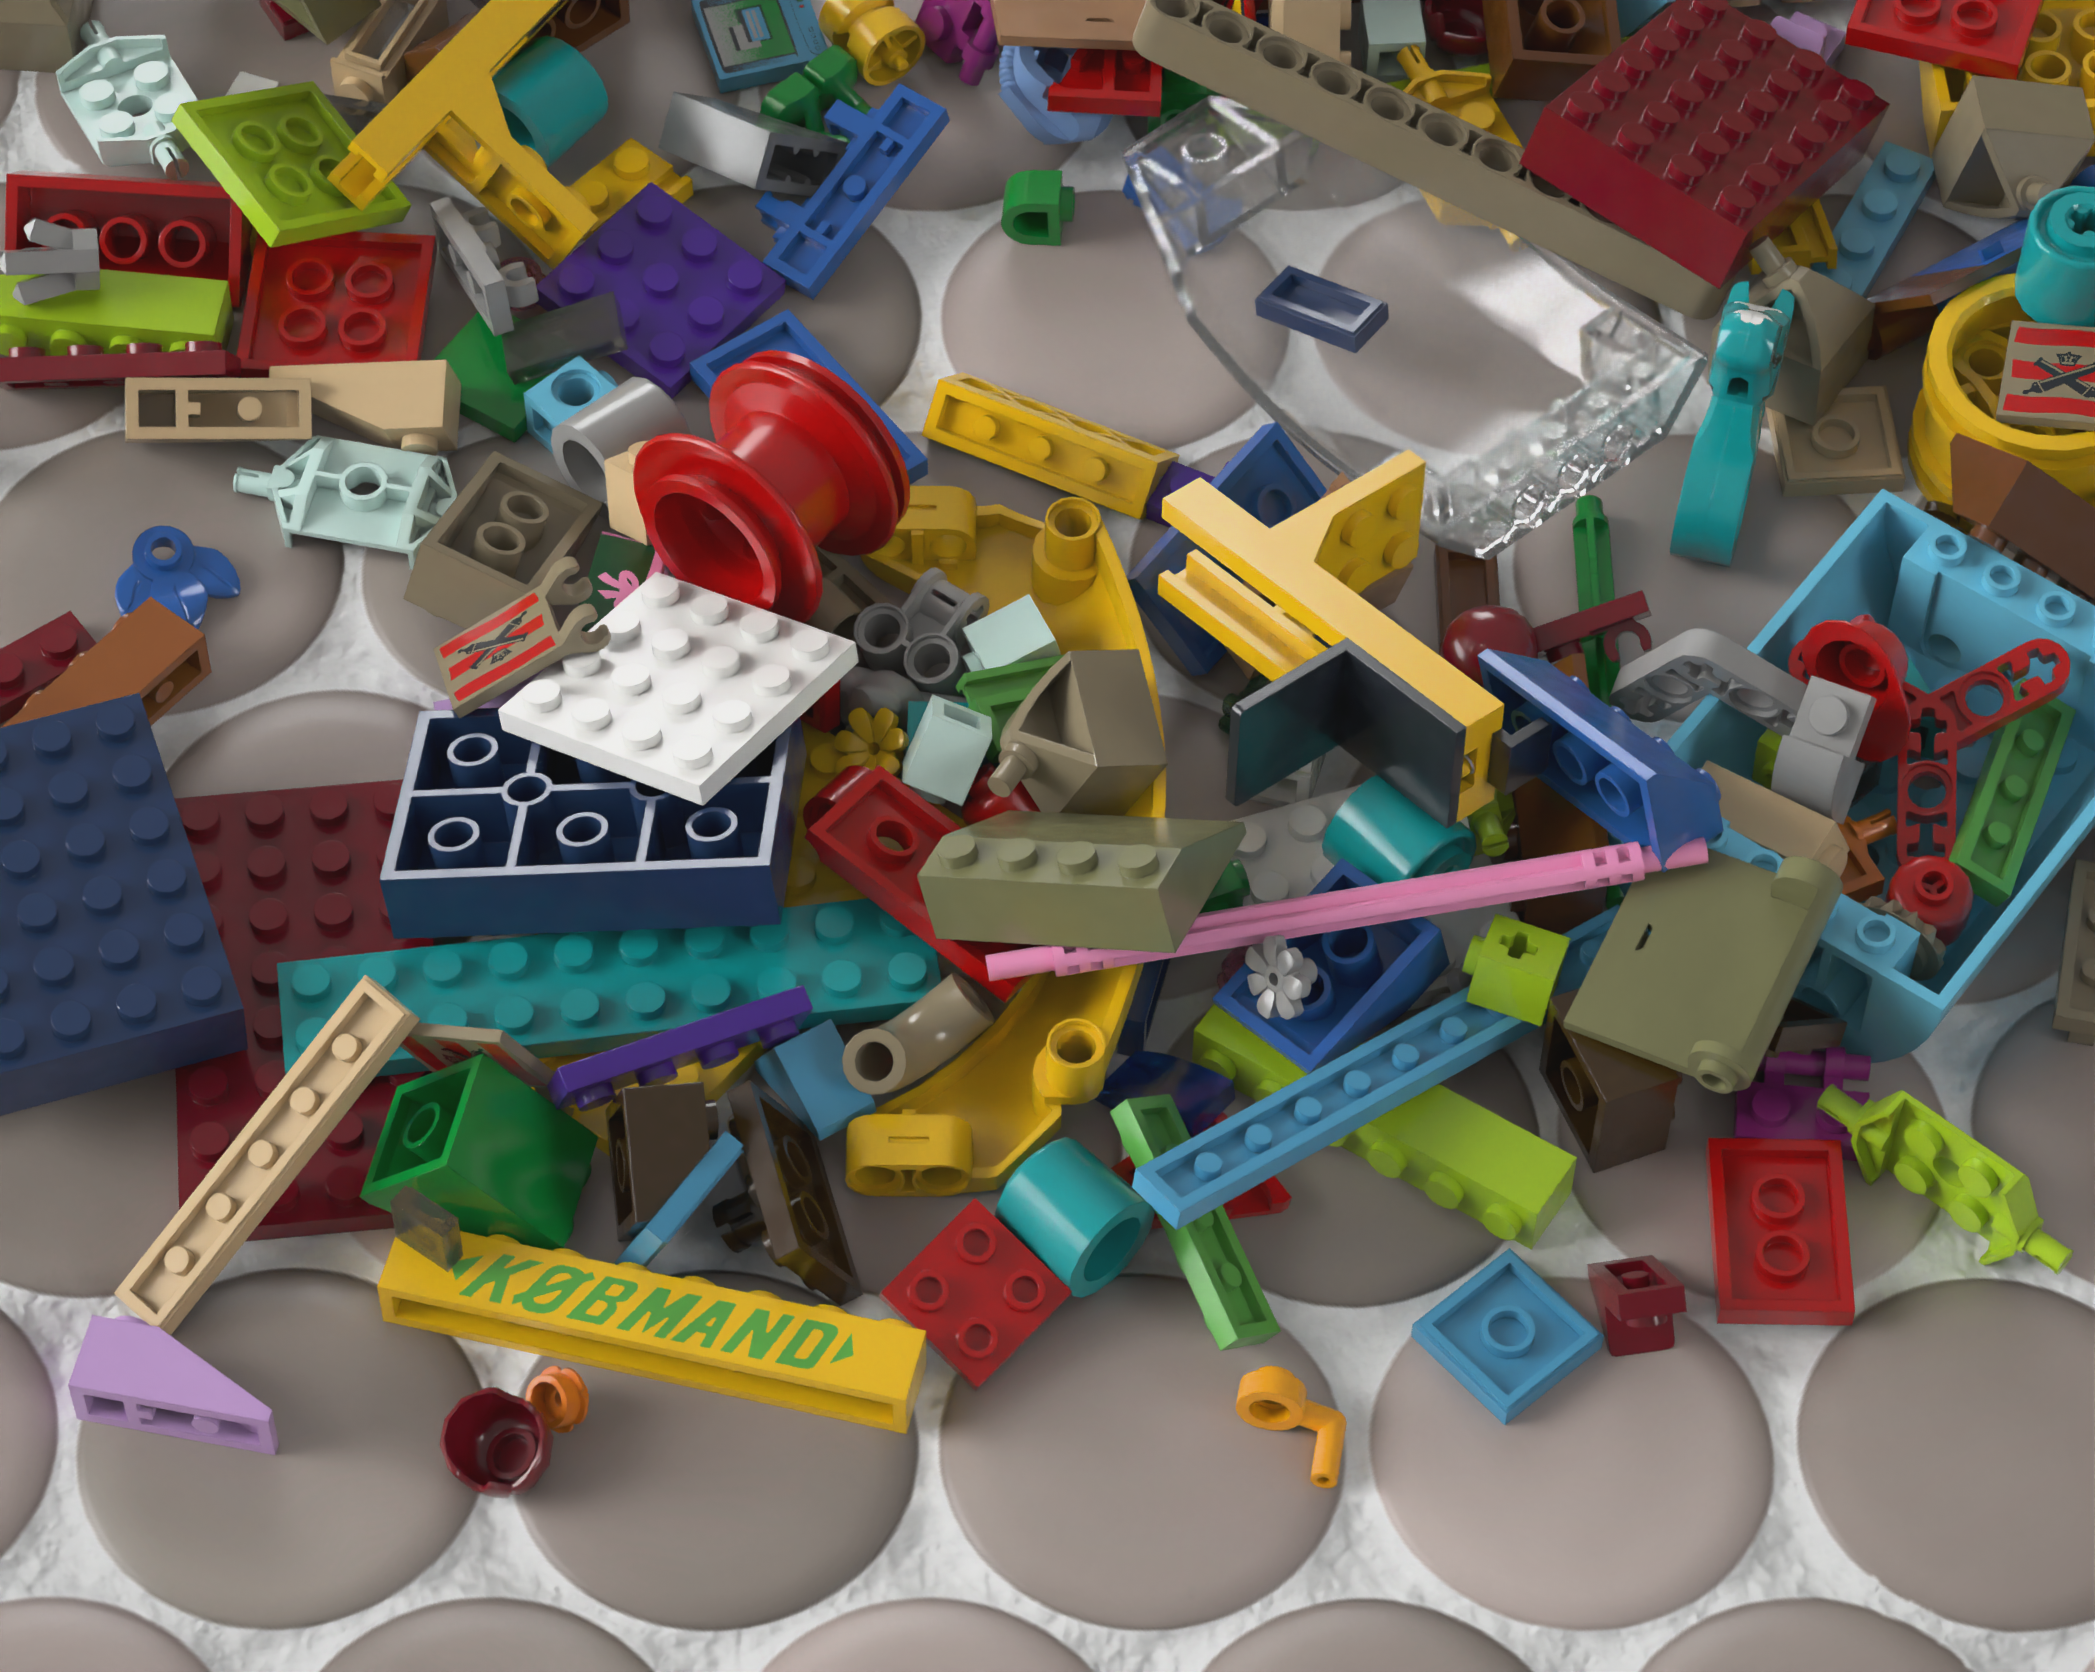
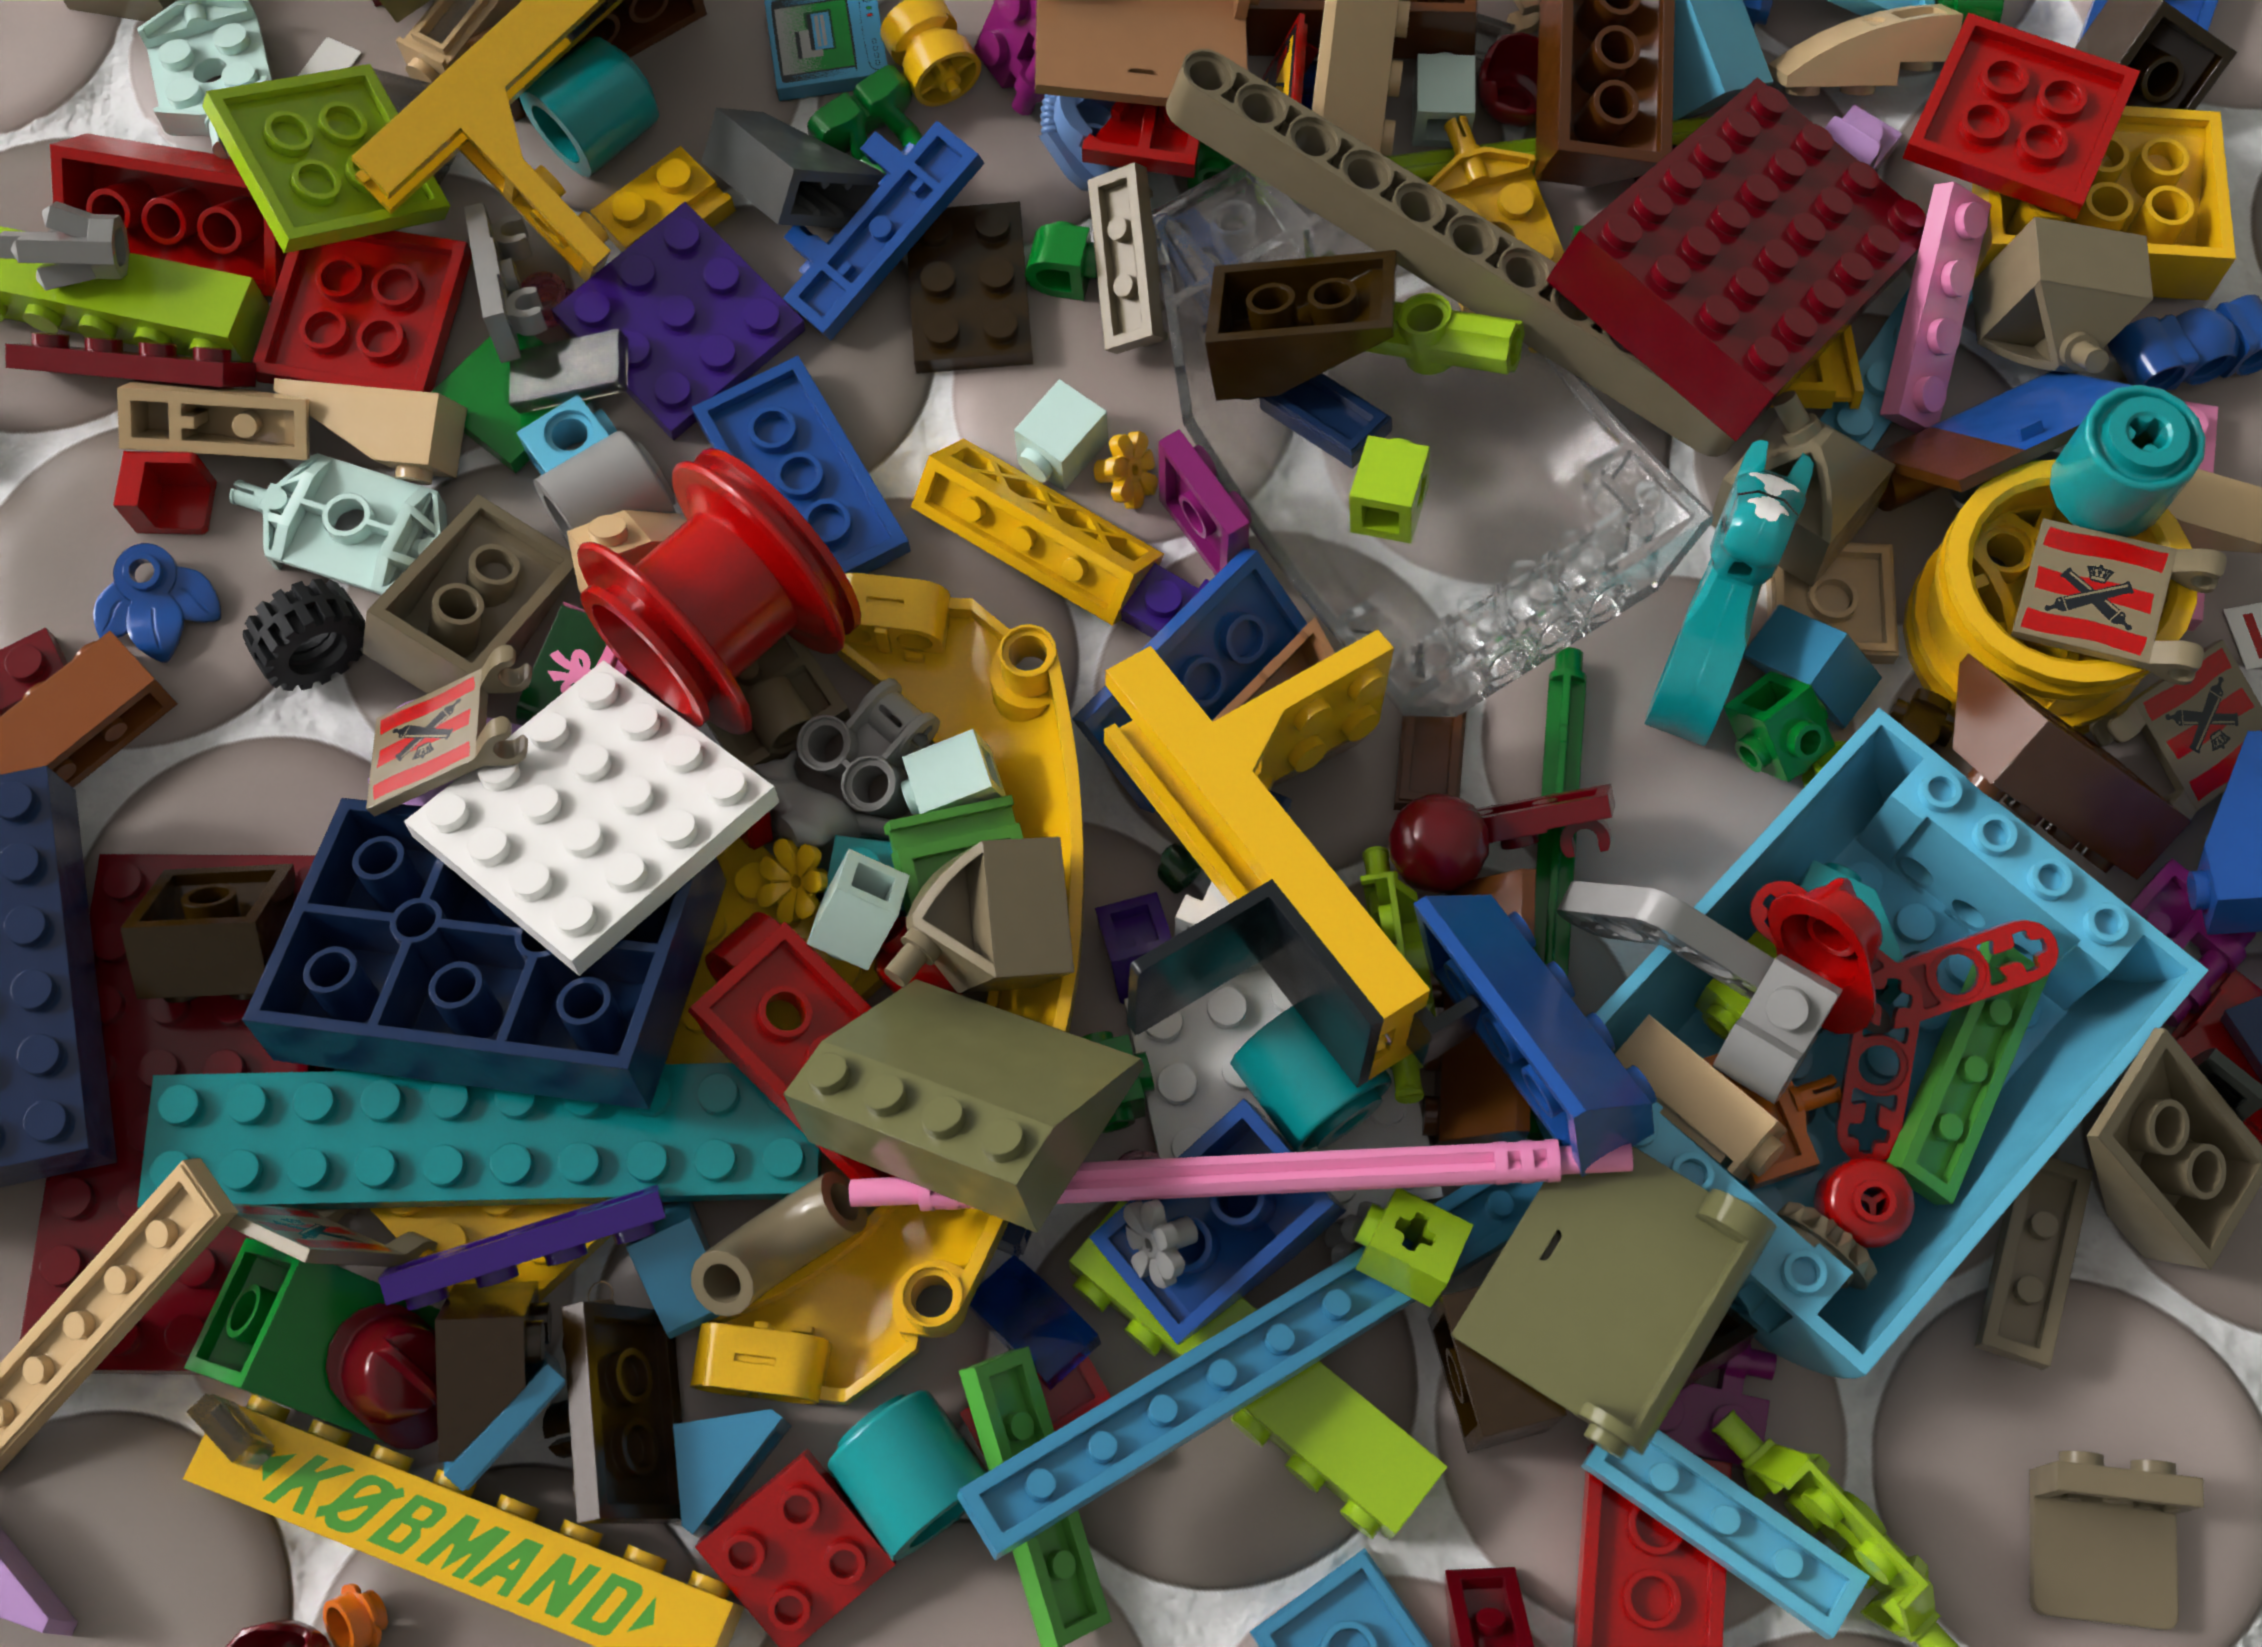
camera: 10 degrees right, 15 degrees up
(169, 482) = (165, 492): none -> red panel
(312, 841) = (207, 931): none -> dark brown slope
(346, 586) = (305, 634): none -> black tyre
(570, 1179) = (386, 1374): none -> dark red piece
(889, 1230) = (719, 1460): none -> dark azure slope
(947, 244) = (970, 290): none -> dark brown plate
(1062, 358) = (1060, 436): none -> light aqua brick
(1103, 196) = (1126, 259): none -> plate
(1132, 382) = (1128, 469): none -> yellow plant
(1202, 778) = (1130, 931): none -> dark purple bracket
(1211, 394) = (1199, 504): none -> magenta plate
(1282, 222) = (1295, 319): none -> dark brown slope
(1396, 358) = (1389, 489): none -> lime brick
(1411, 229) = (1437, 337): none -> lime piece
(1793, 536) = (1779, 726): none -> green brick
(1819, 483) = (1817, 656): none -> dark azure slope
(1838, 1174) = (1735, 1530): none -> medium azure plate
(1896, 172) = (1935, 307): none -> bright pink plate

